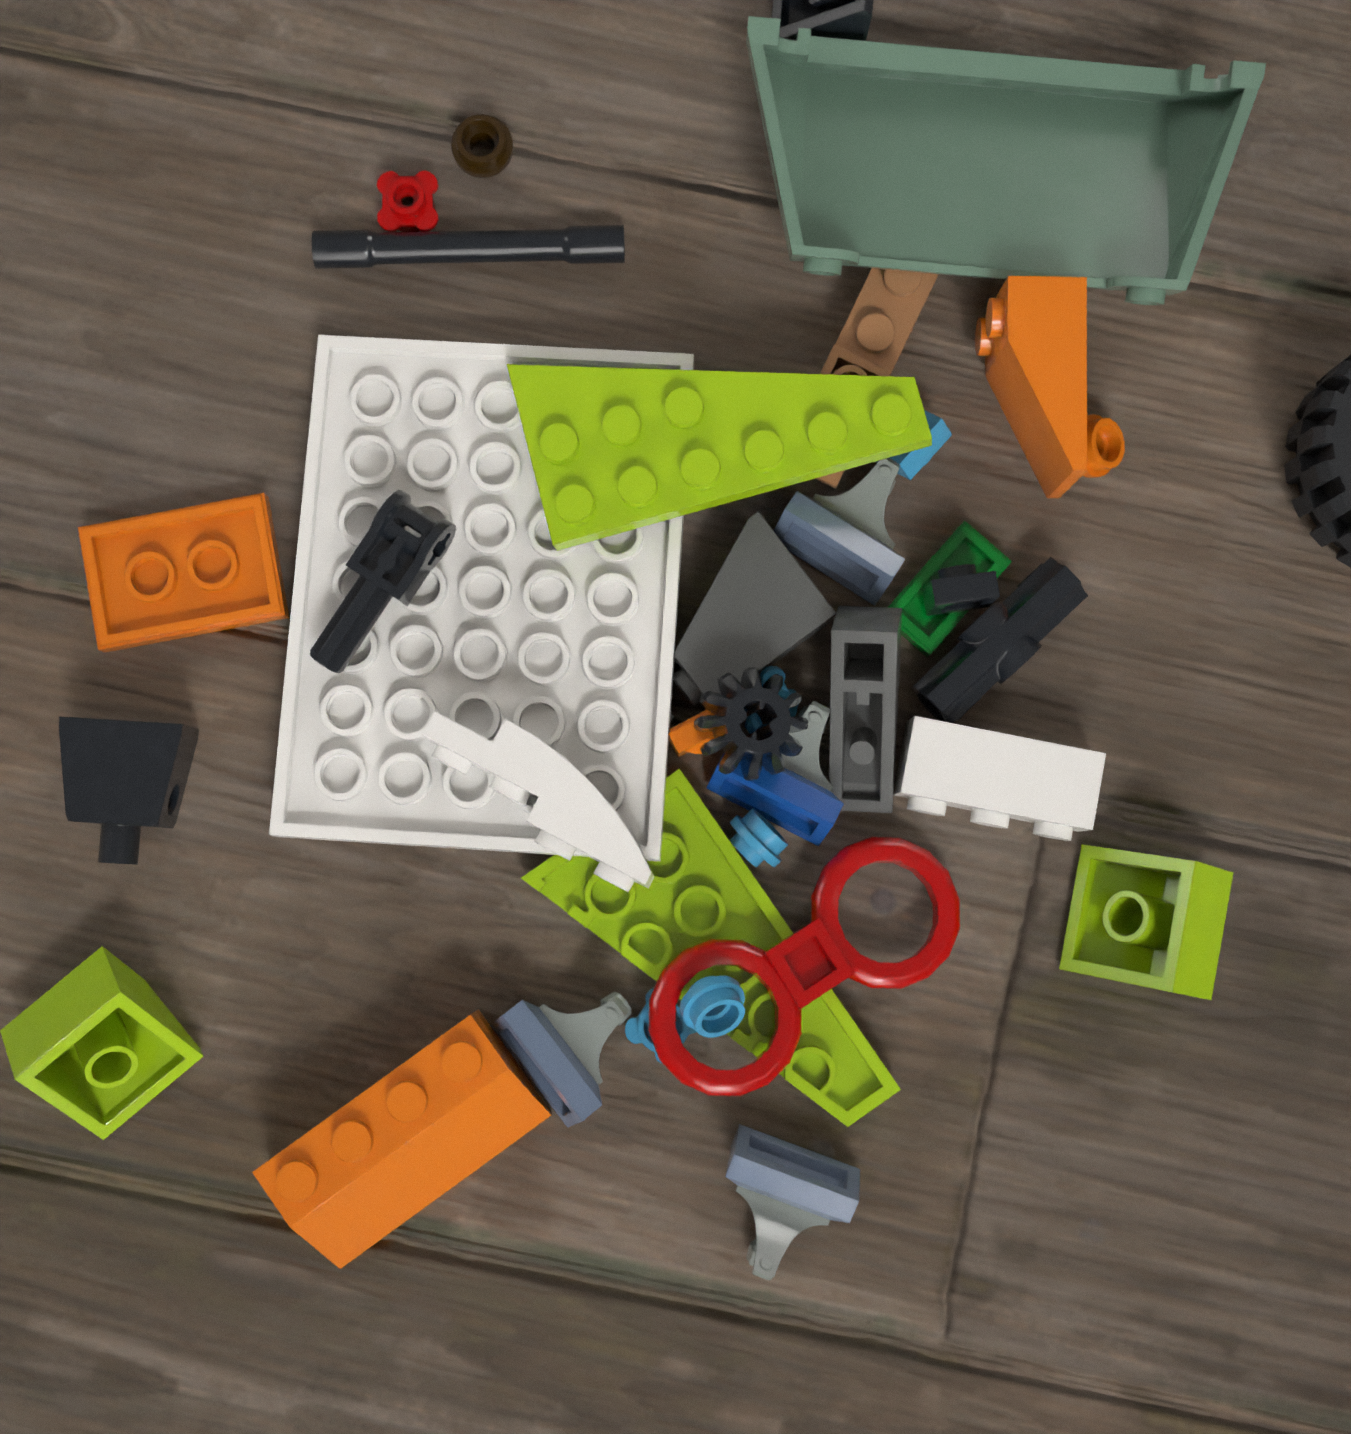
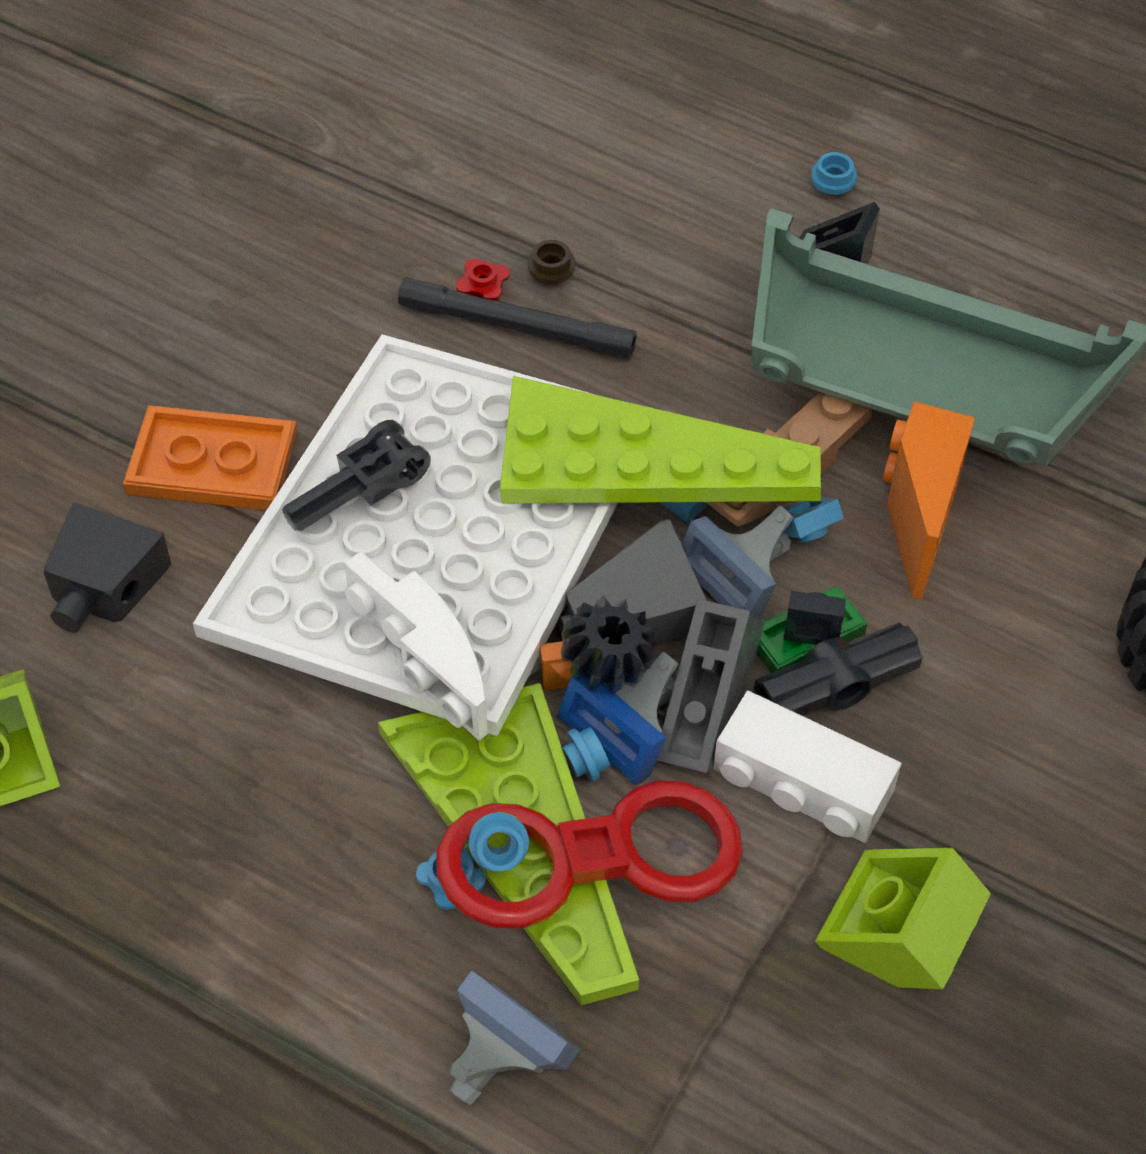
camera: 20 degrees right, 30 degrees down
(403, 1142) = (193, 889): orange slope -> none
(562, 1051) = (356, 860): sand blue piece -> none
(1104, 445) = (960, 562): orange plate -> none

